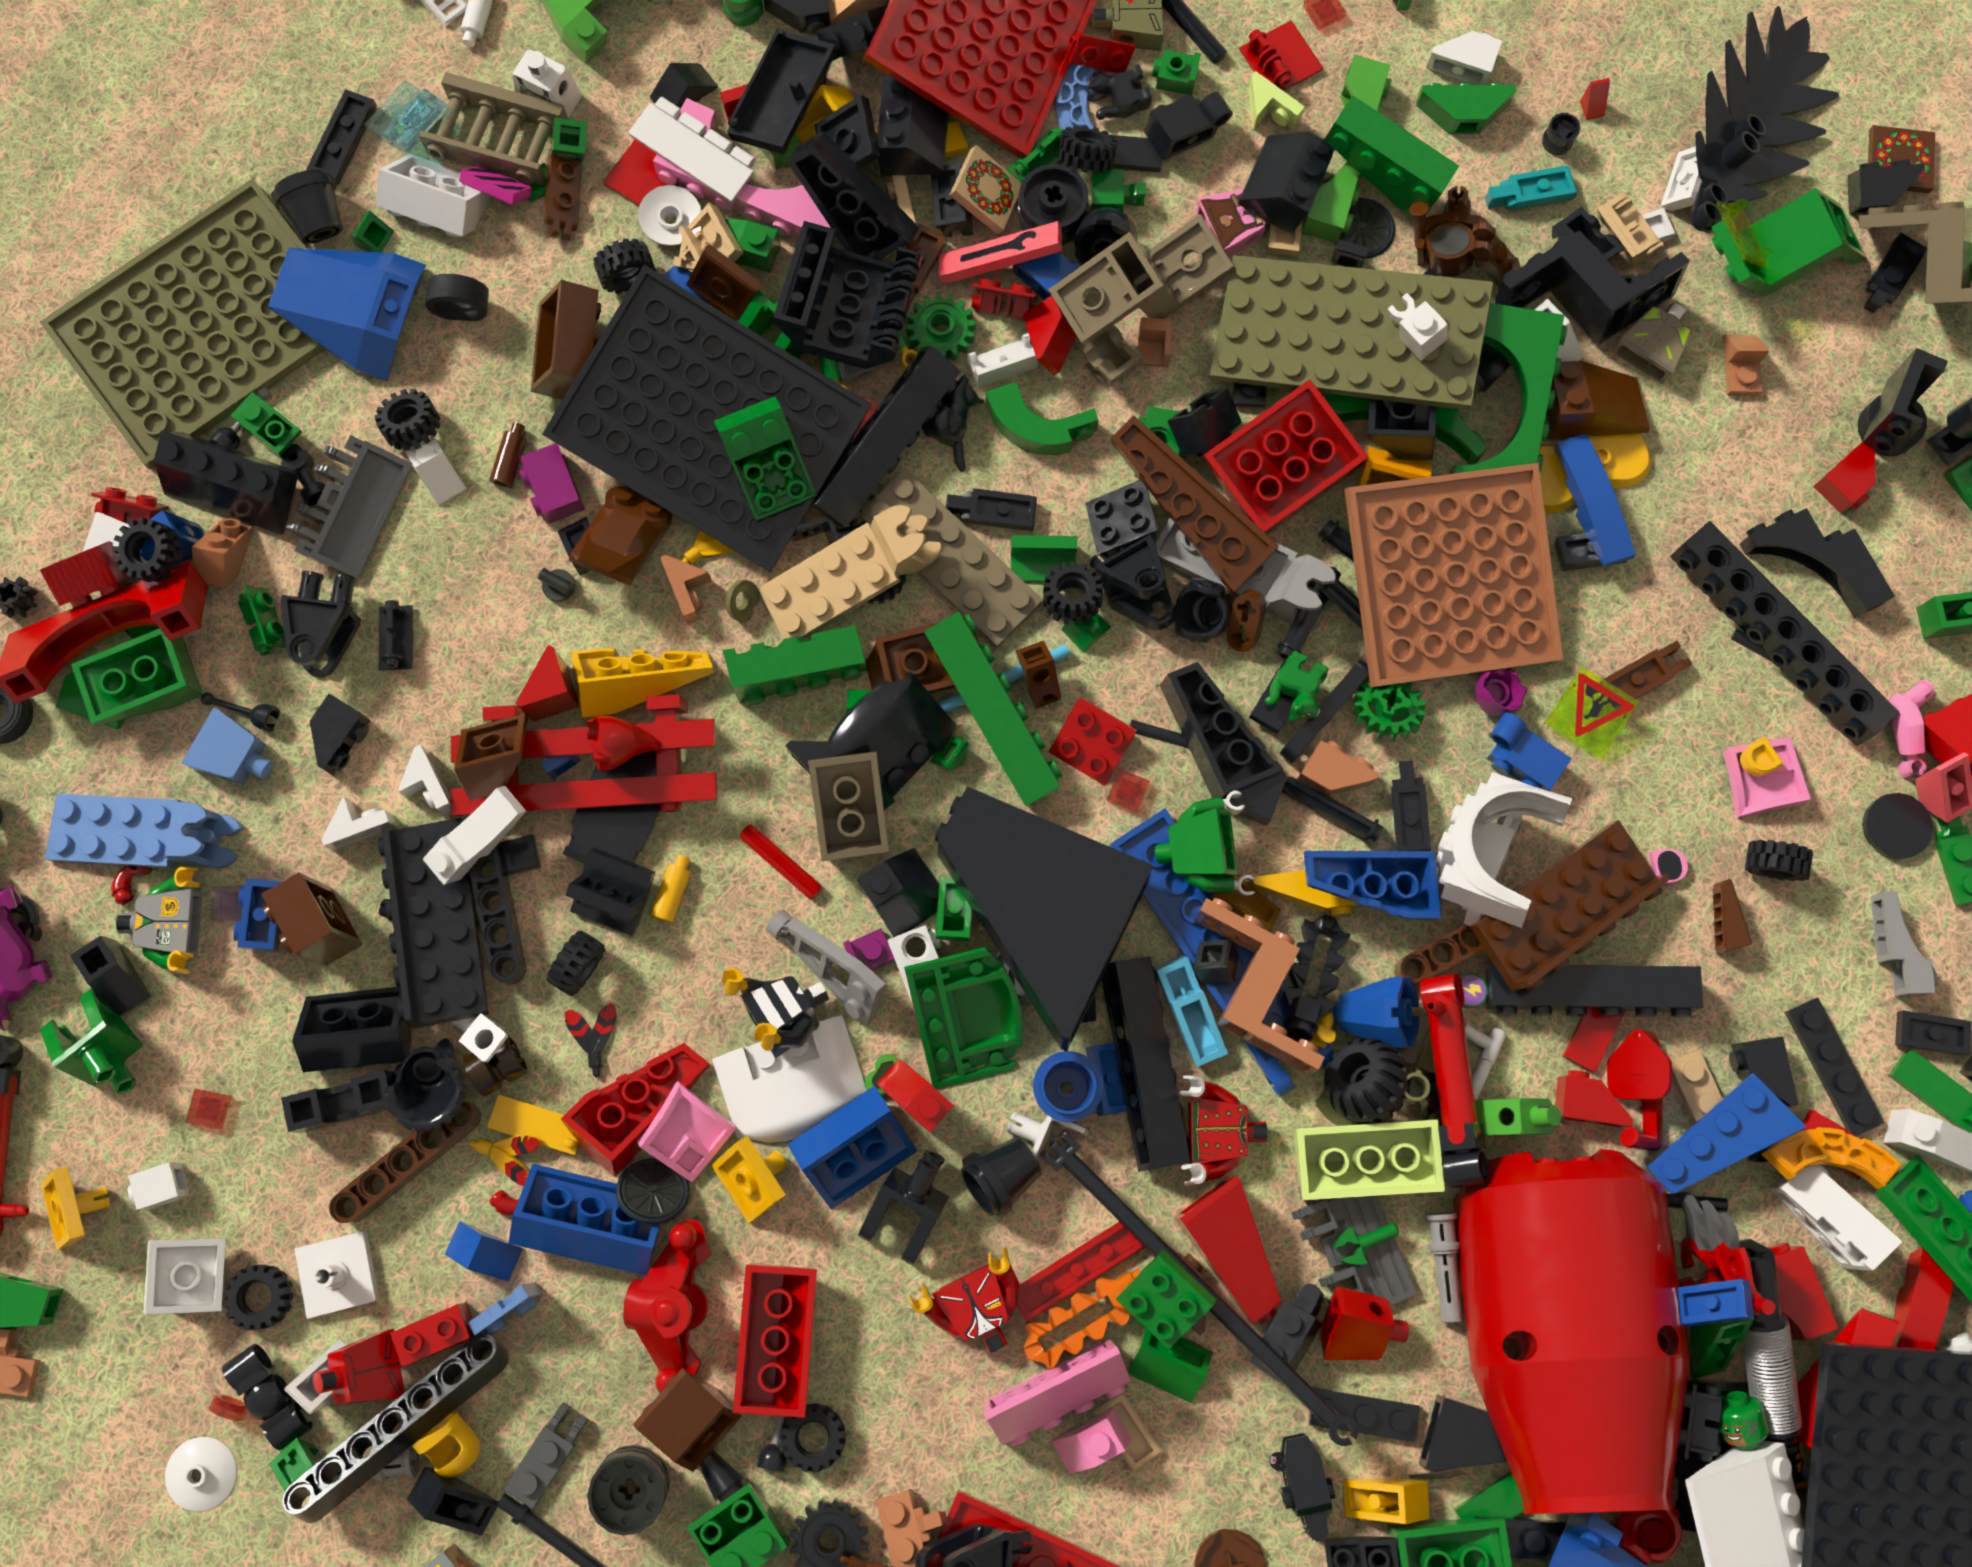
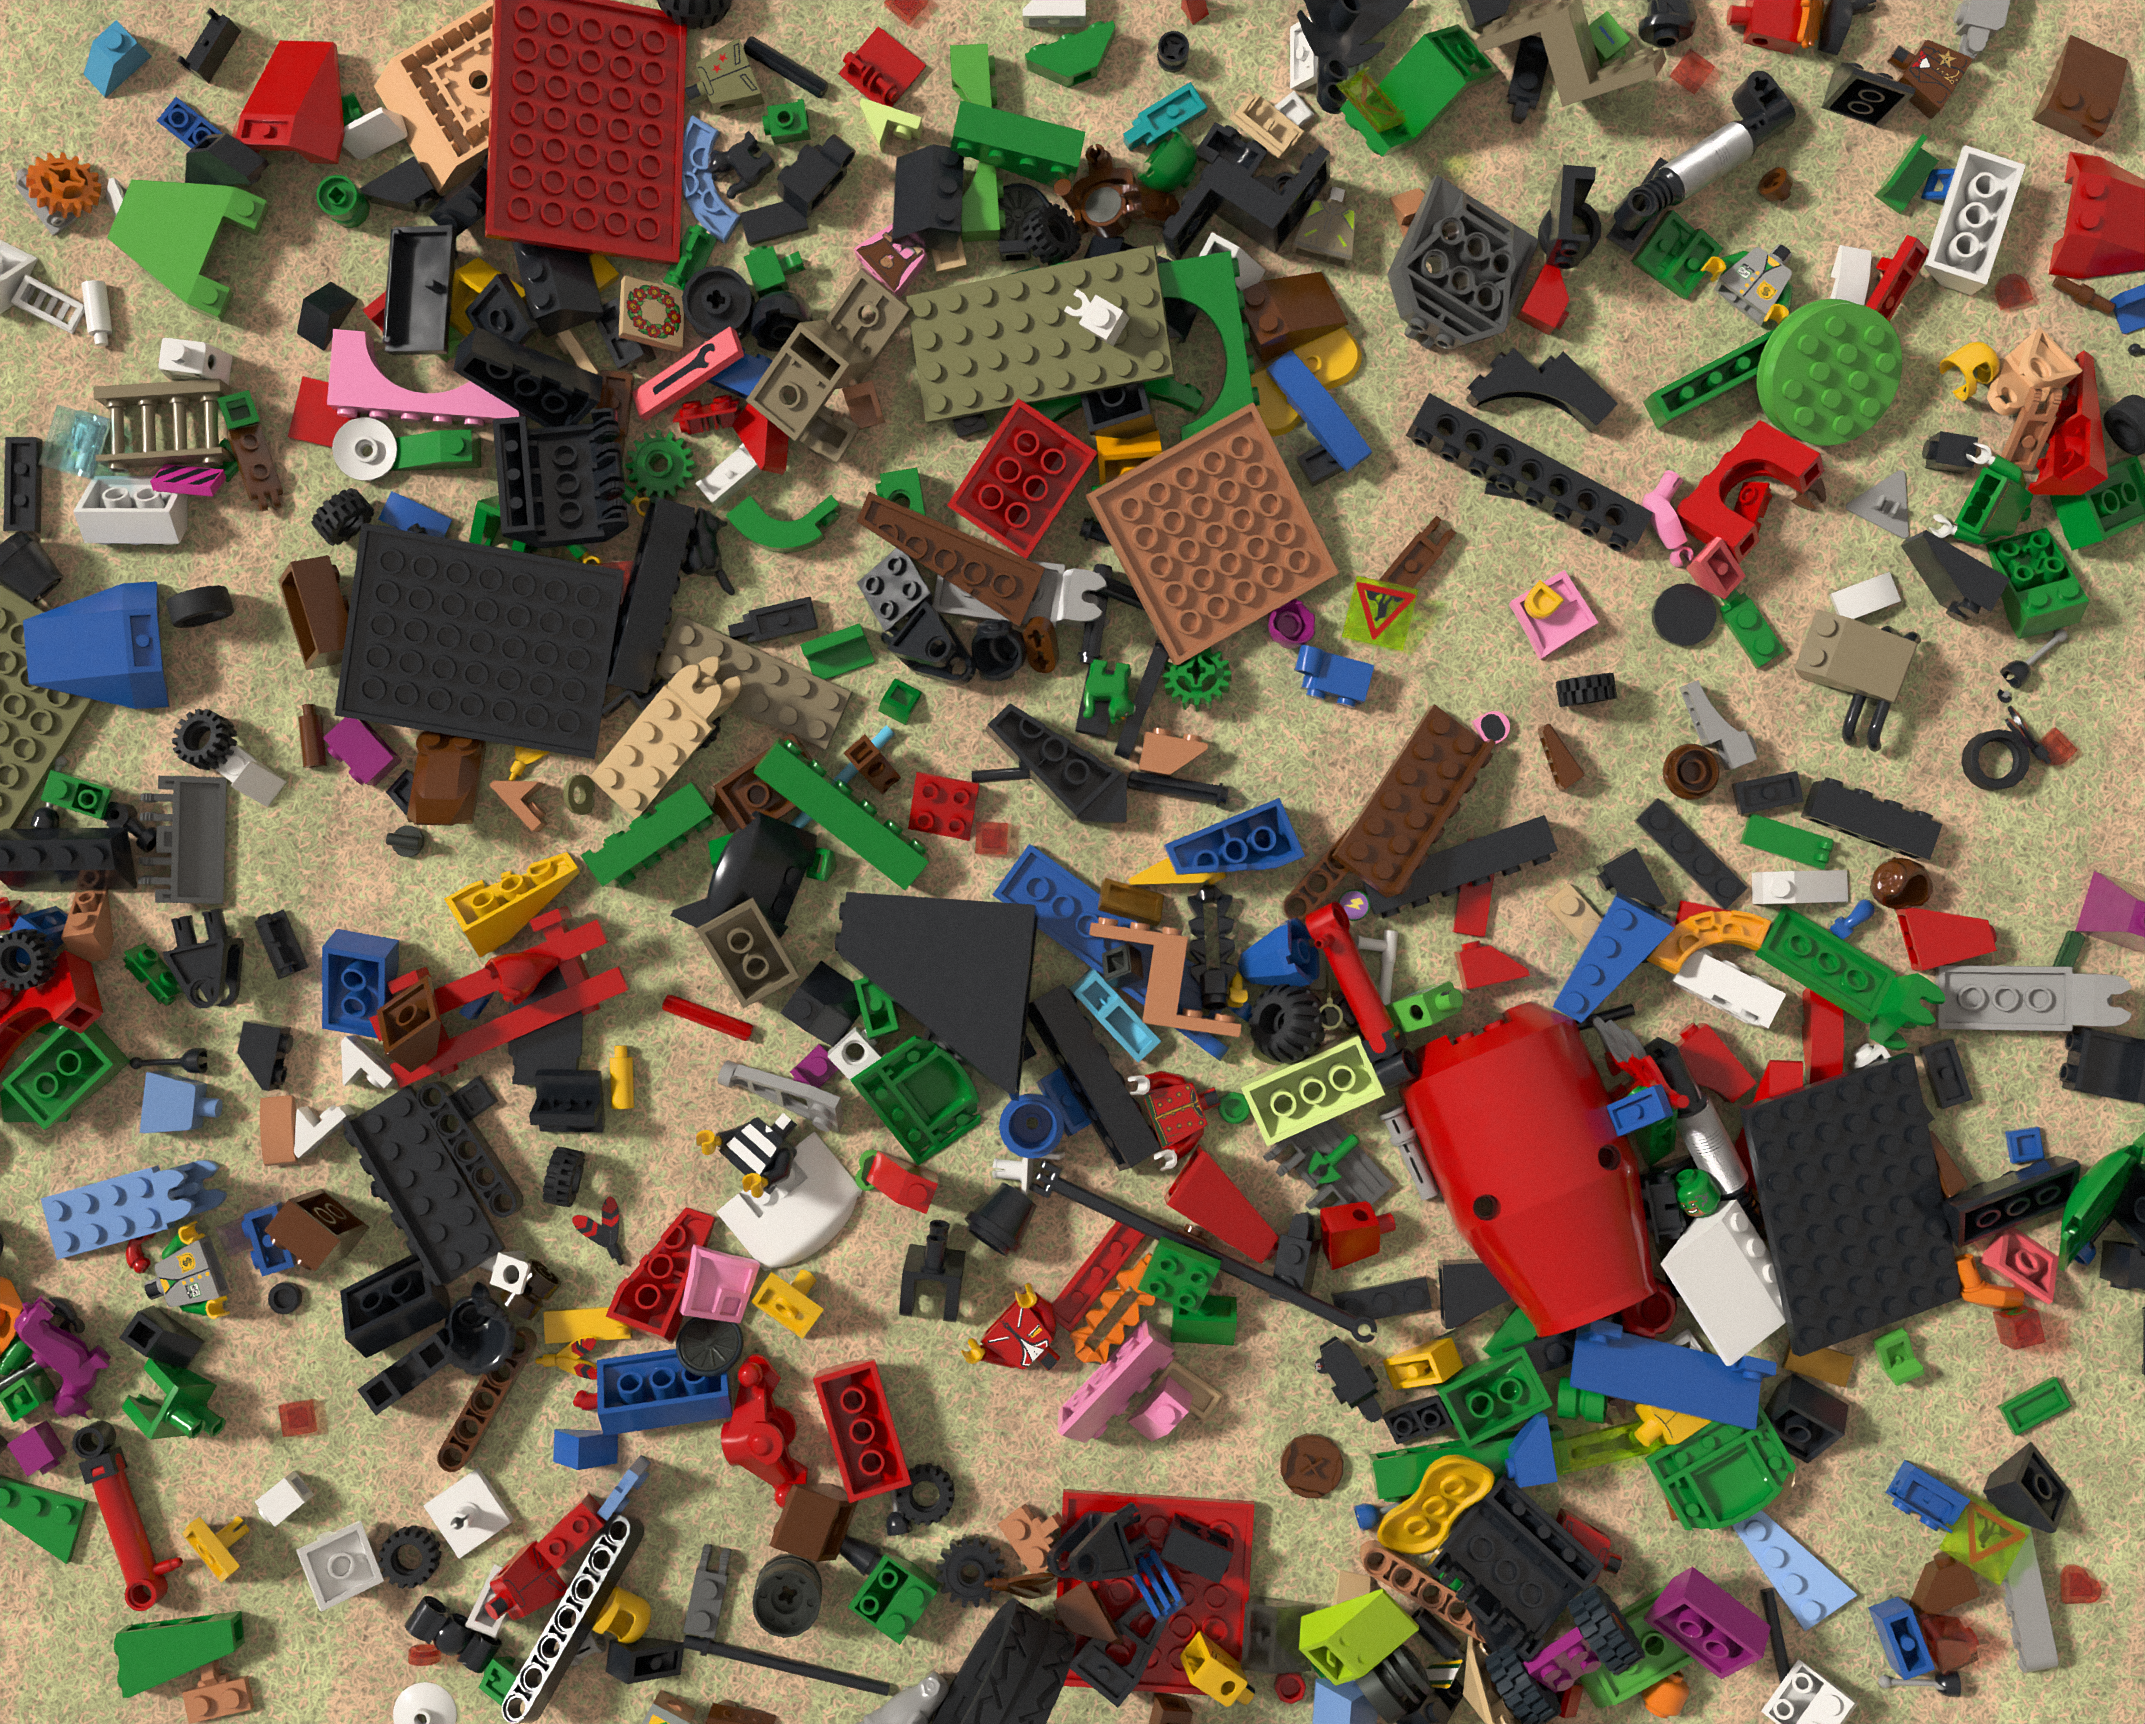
camera: 15 degrees left, 10 degrees up
(249, 982) = (285, 1297): none -> black tile
(314, 813) = (278, 1130): none -> nougat slope
(372, 233) = (94, 570): green slope -> none
(453, 697) = (356, 980): none -> blue slope
(474, 836) = (428, 1104): white slope -> none
(548, 688) = (438, 941): red slope -> none
(684, 147) = (365, 384): white windscreen -> none
(706, 229) = (411, 466): tan slope -> none
(723, 283) = (442, 504): reddish brown tile -> none
(765, 458) = (546, 660): green slope -> none
(852, 1147) = (866, 1243): blue slope -> none
(1072, 608) = (871, 661): black tyre -> none
(1087, 149) = (731, 239): black tyre -> none
(1100, 52) = (708, 133): red hinge -> none
(1204, 846) = (1075, 870): green torso -> none
(1207, 423) = (939, 472): black brick -> none
(1278, 1151) = (1234, 1108): none -> green tile
(1391, 247) = (1051, 234): none -> black tyre
(1410, 811) = (1248, 764): black hinge -> none
(1477, 847) = (1318, 777): white piece -> none
(1528, 228) = (1171, 163): none -> green cylinder
(1642, 1073) = (1524, 925): red piece -> none
(1774, 418) = (1429, 299): none -> dark grey hinge
(1860, 982) = (1691, 771): none -> reddish brown piece

